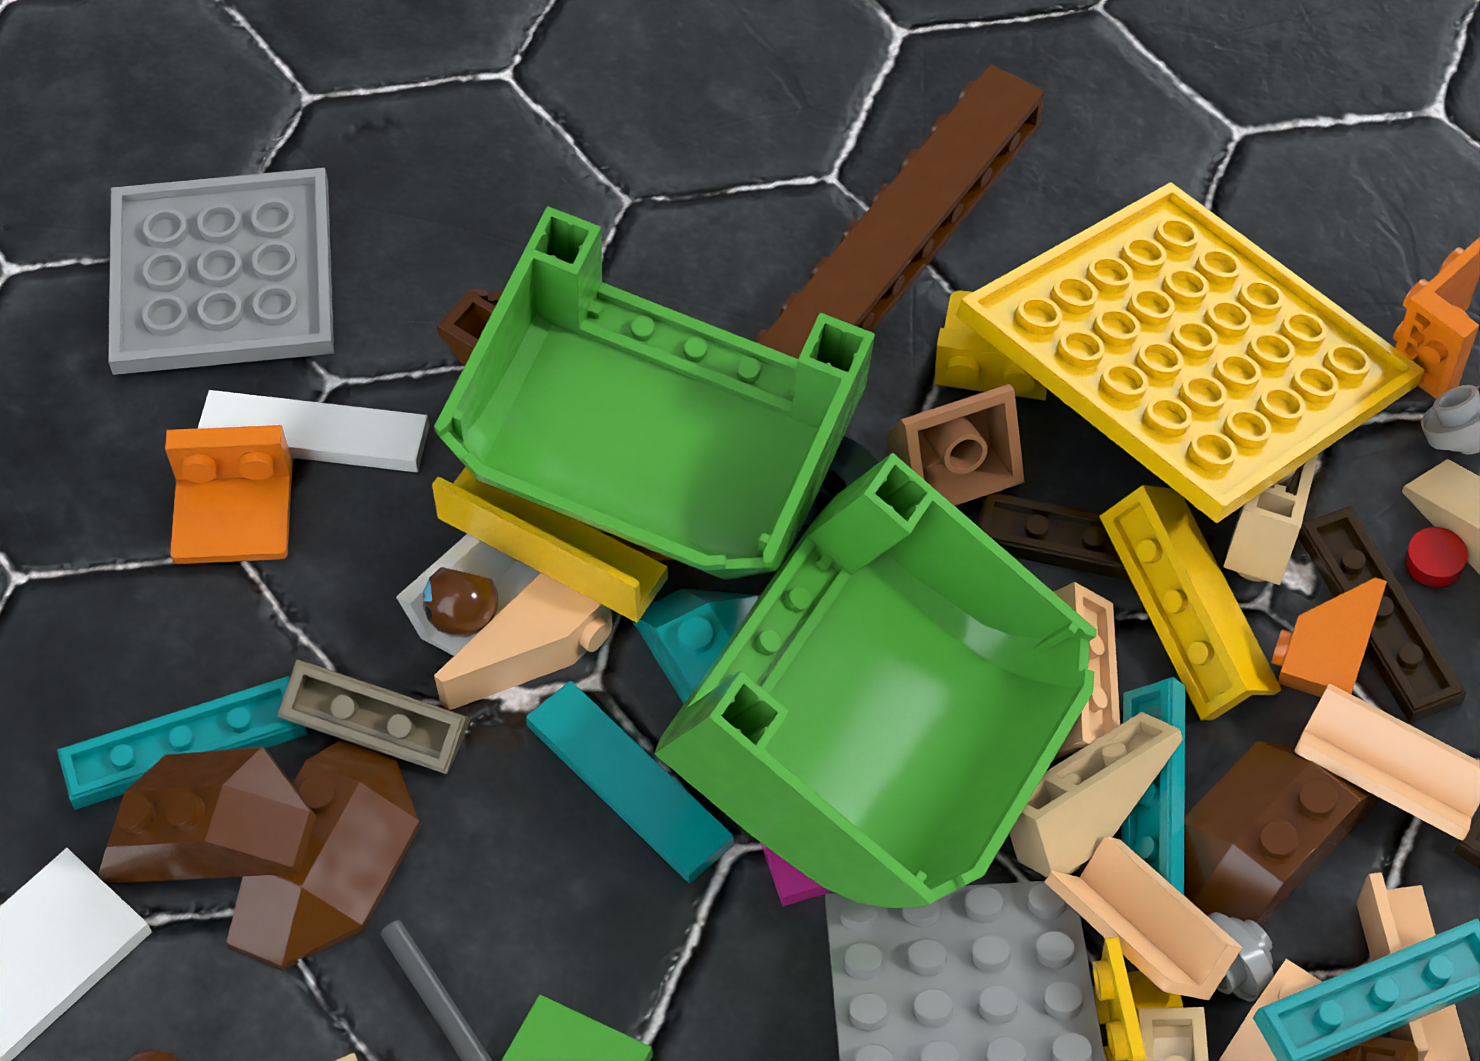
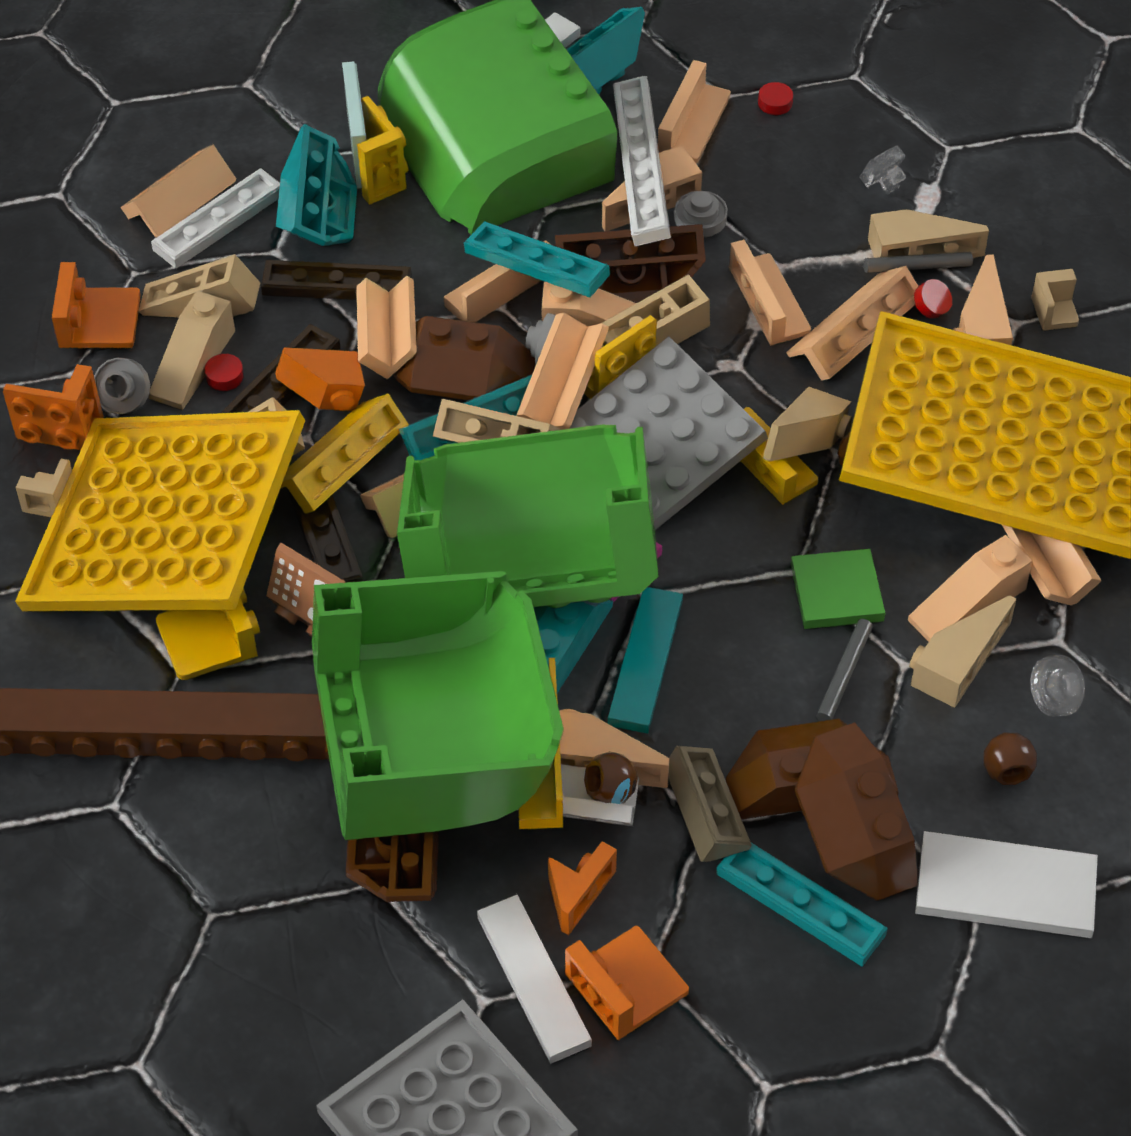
camera: 125 degrees left, 5 degrees down
(375, 512) = (577, 890): none -> orange slope
(1328, 273) = (43, 492): none -> tan panel

